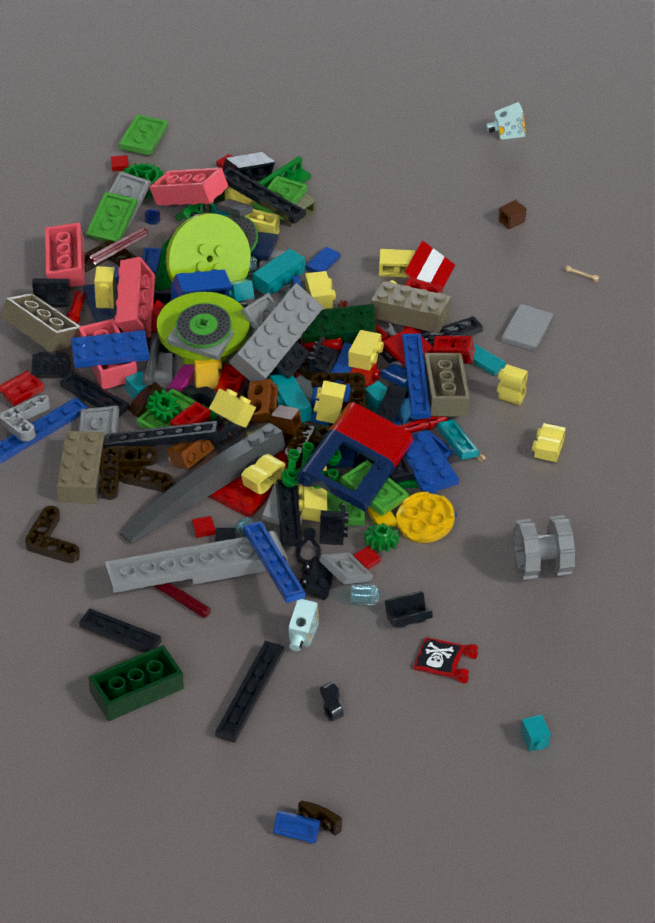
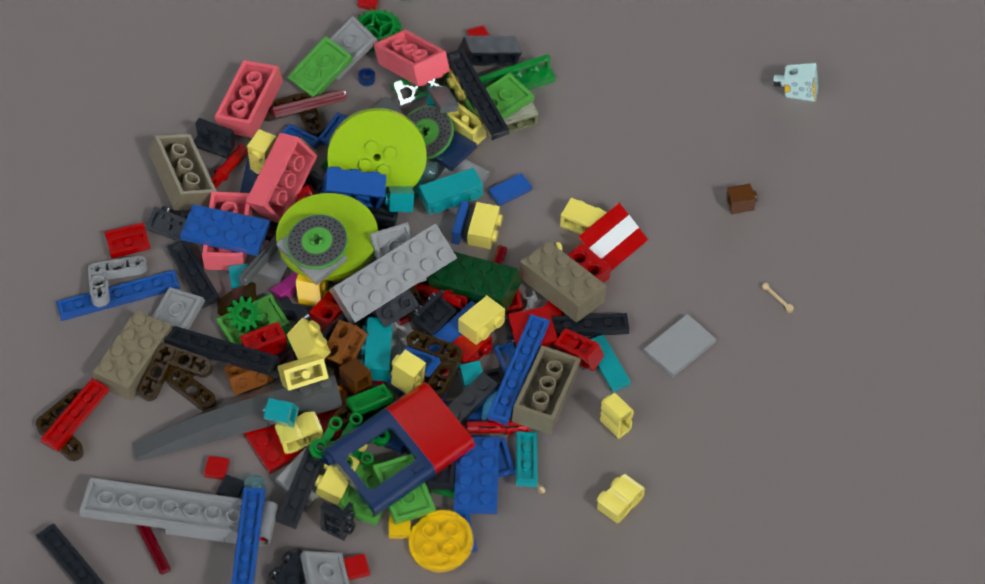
camera: 25 degrees right, 10 degrees up
(58, 524) = (74, 415): none -> red tile
(244, 426) = (302, 372): none -> light yellow brick
(244, 459) = (280, 412): none -> teal brick
(308, 432) = (369, 400): none -> green tile
(308, 534) = (309, 520): black piece -> none
(381, 537) = (382, 549): green gear -> none

